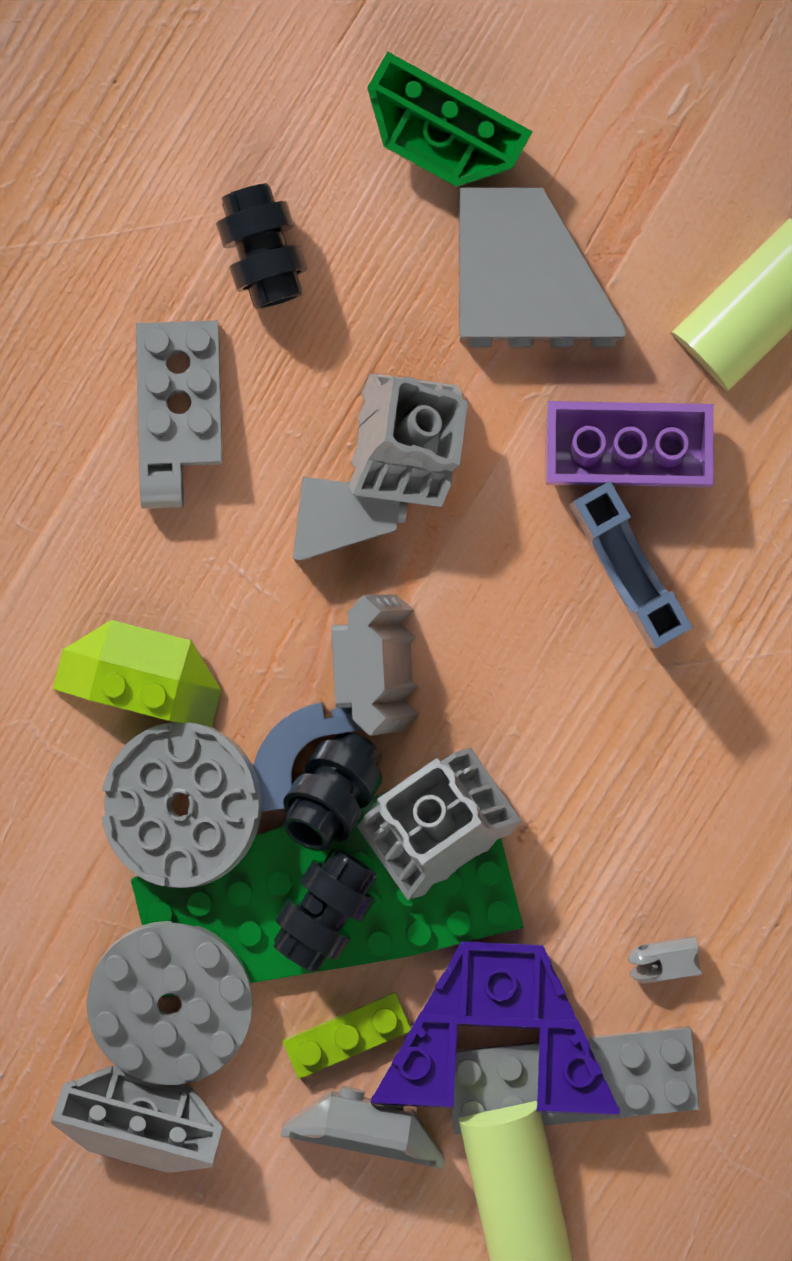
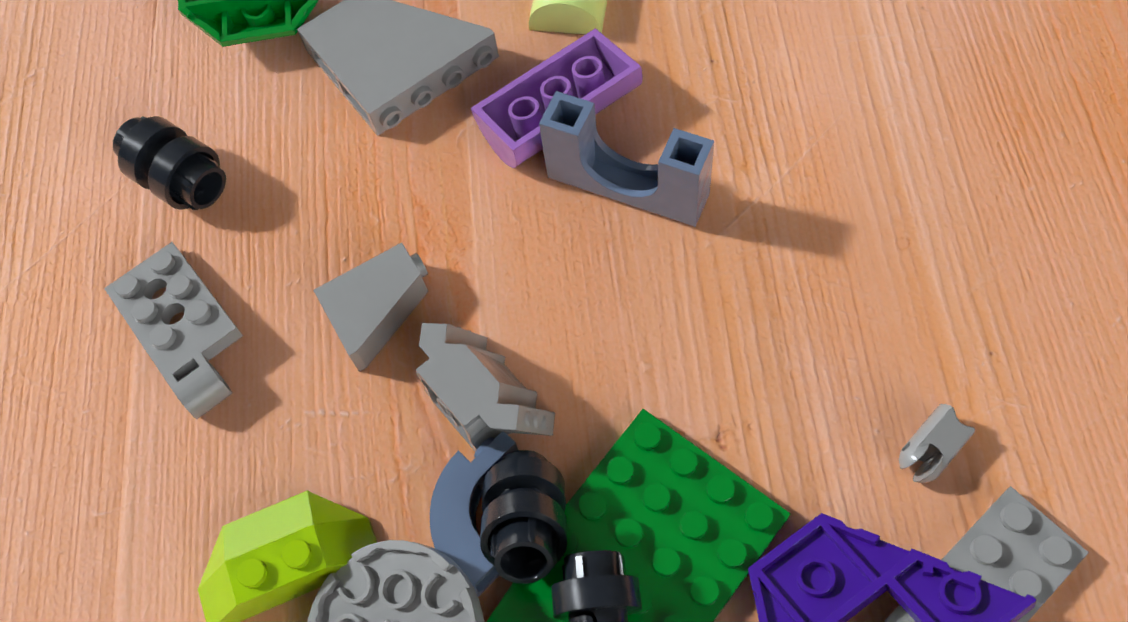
camera: 30 degrees left, 25 degrees down
(408, 439) = (379, 201): light grey slope -> none
(437, 821) = (637, 474): light grey slope -> none

